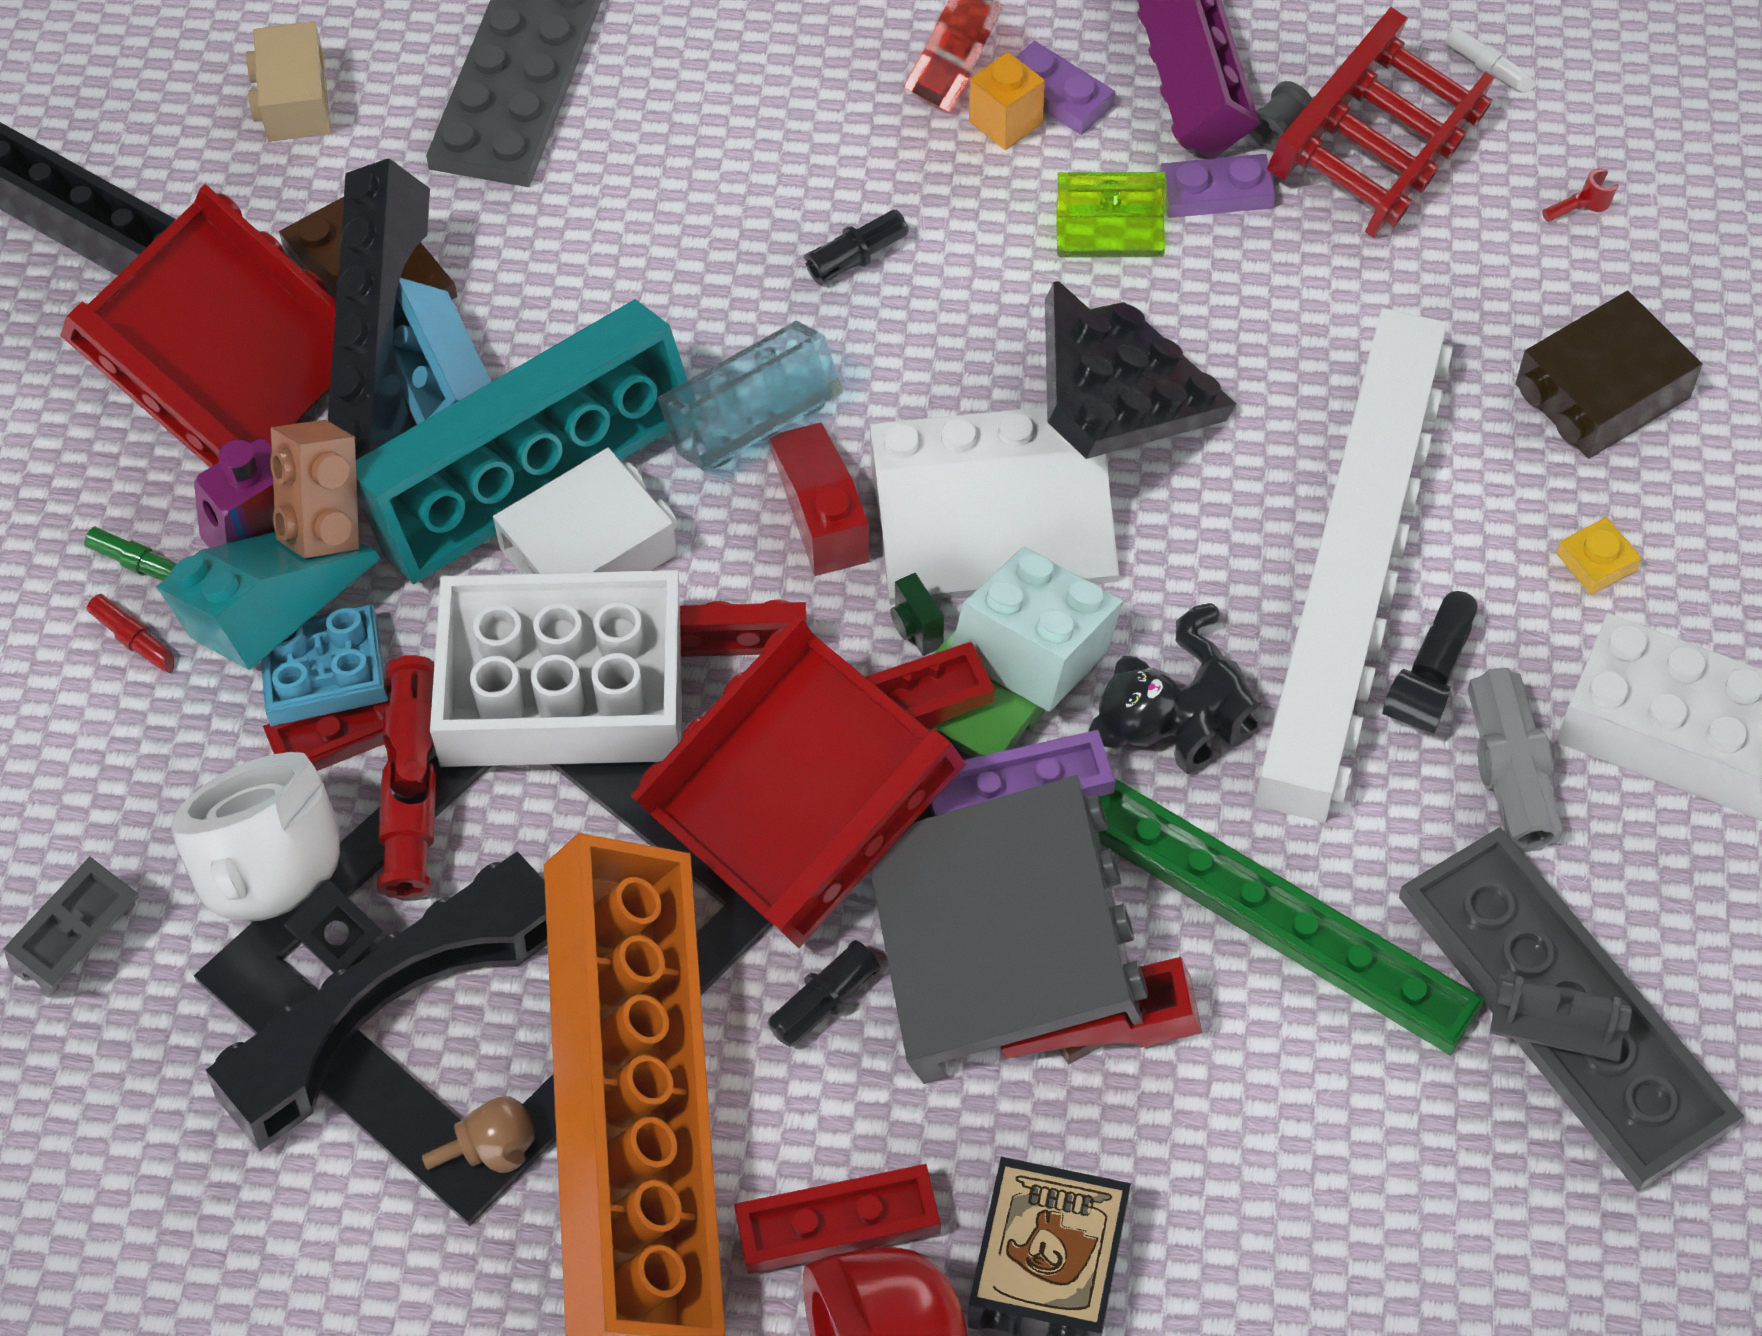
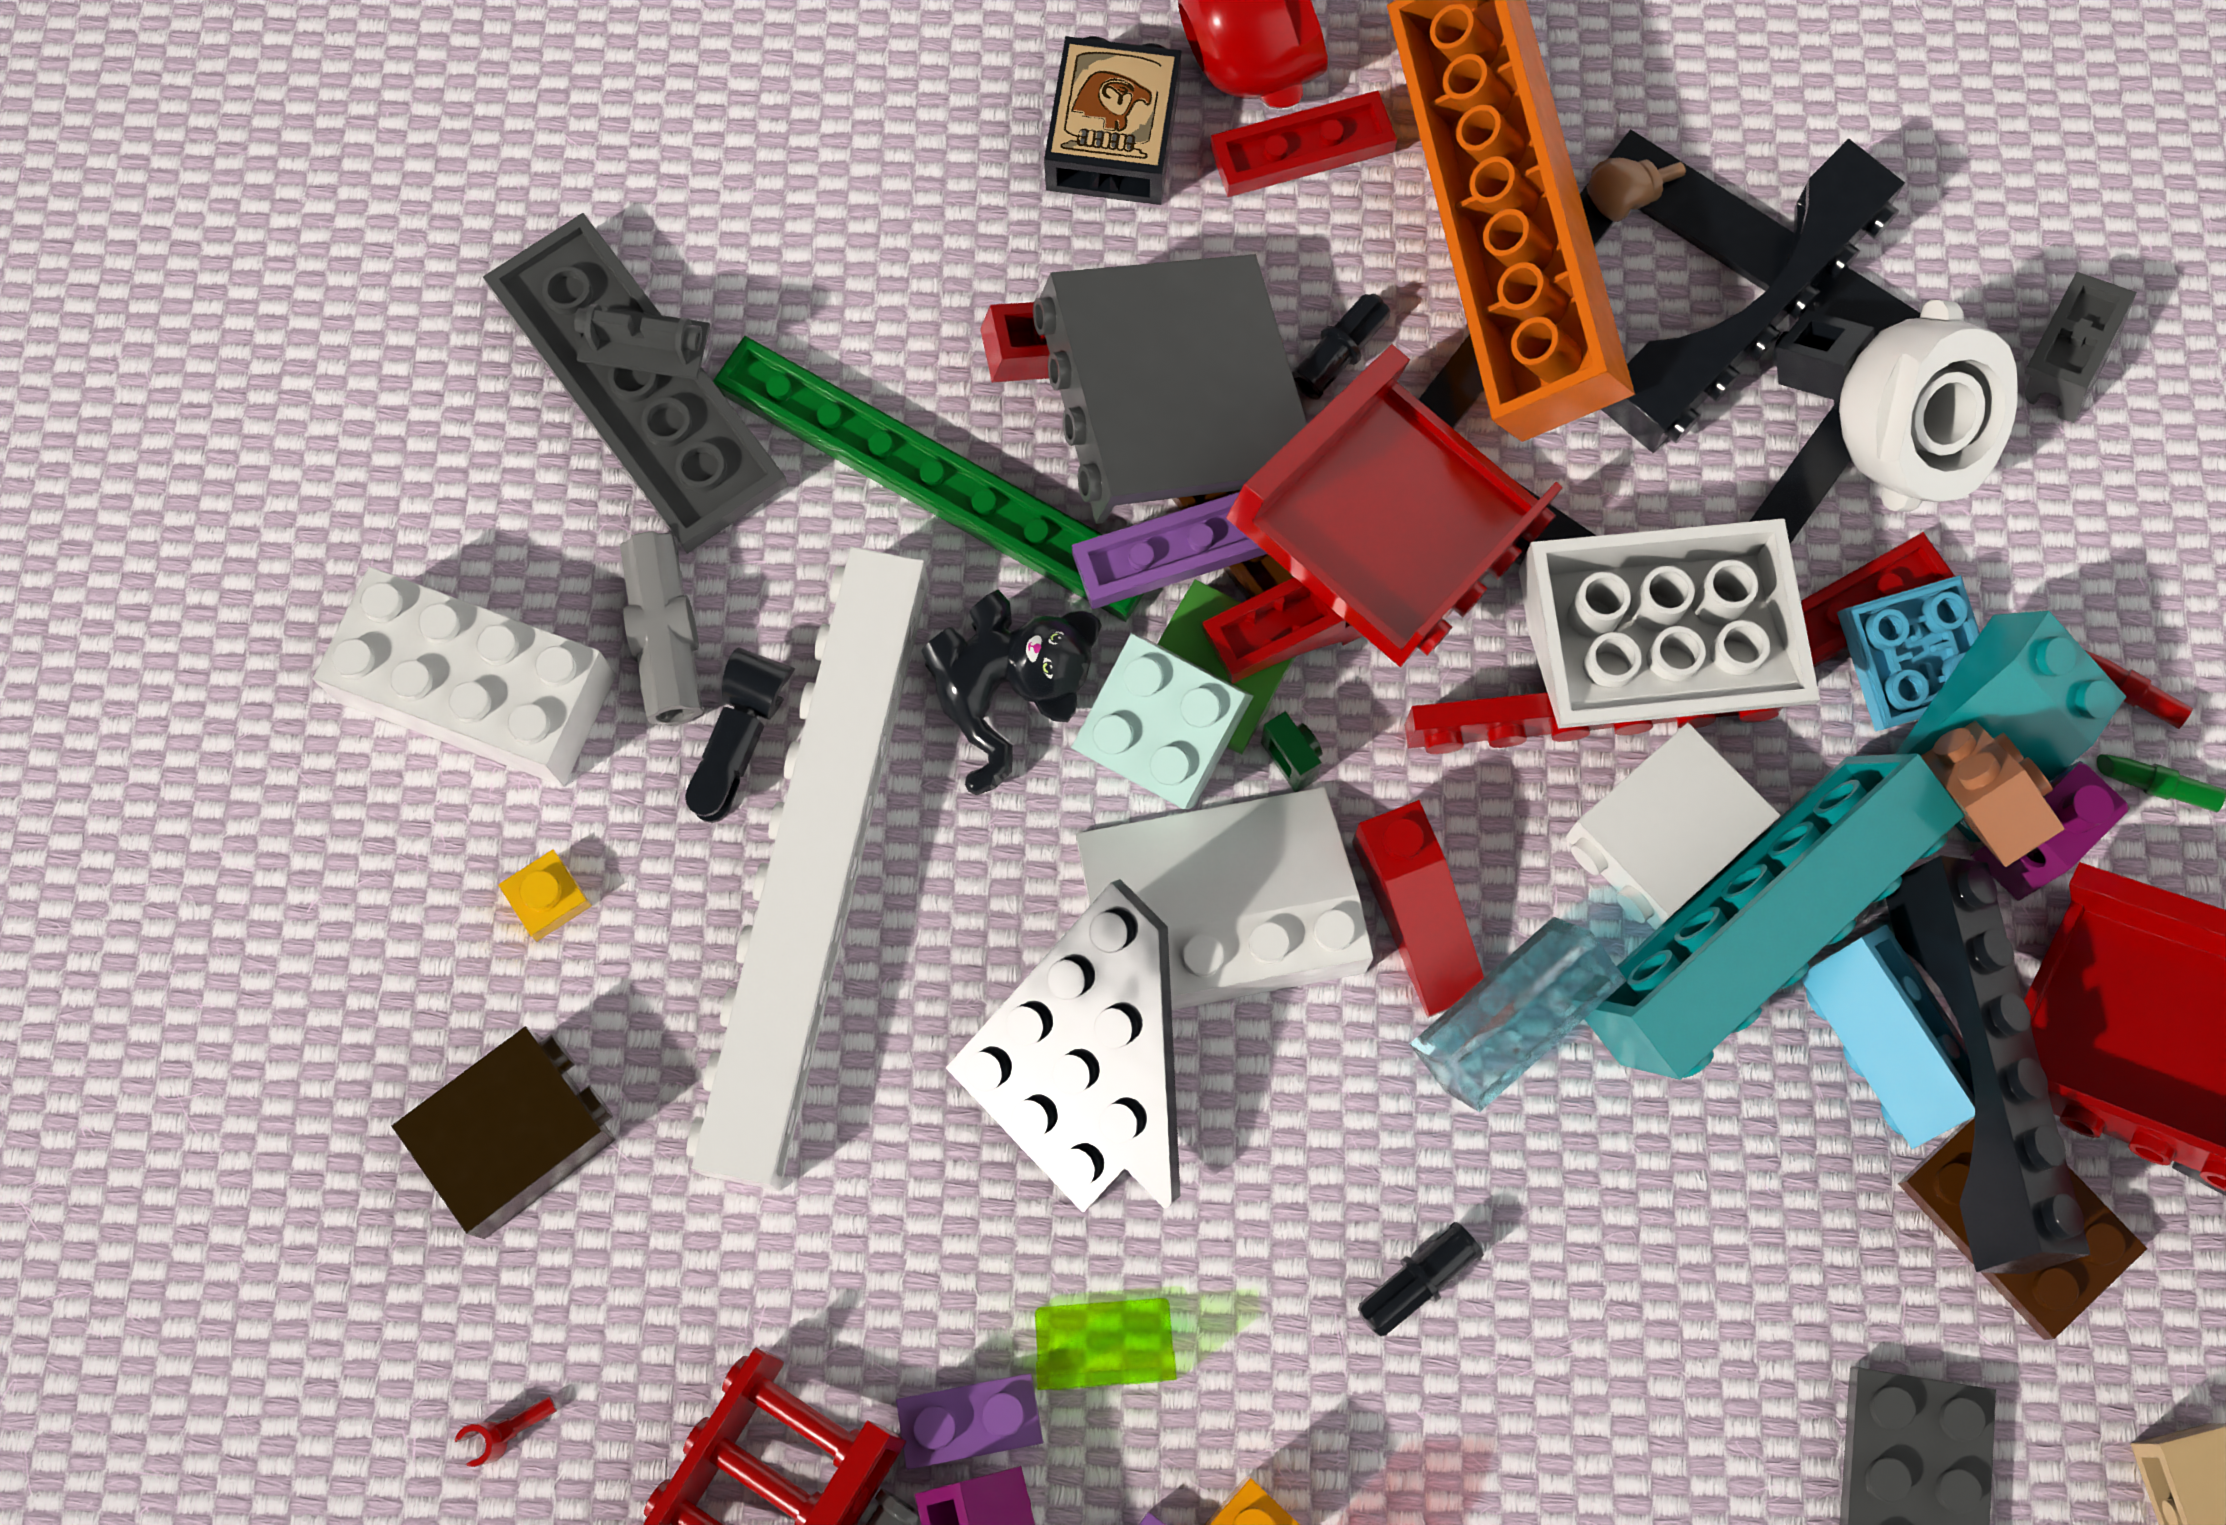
camera: 175 degrees right, 15 degrees up
(404, 827) = (1784, 465): red piece -> none

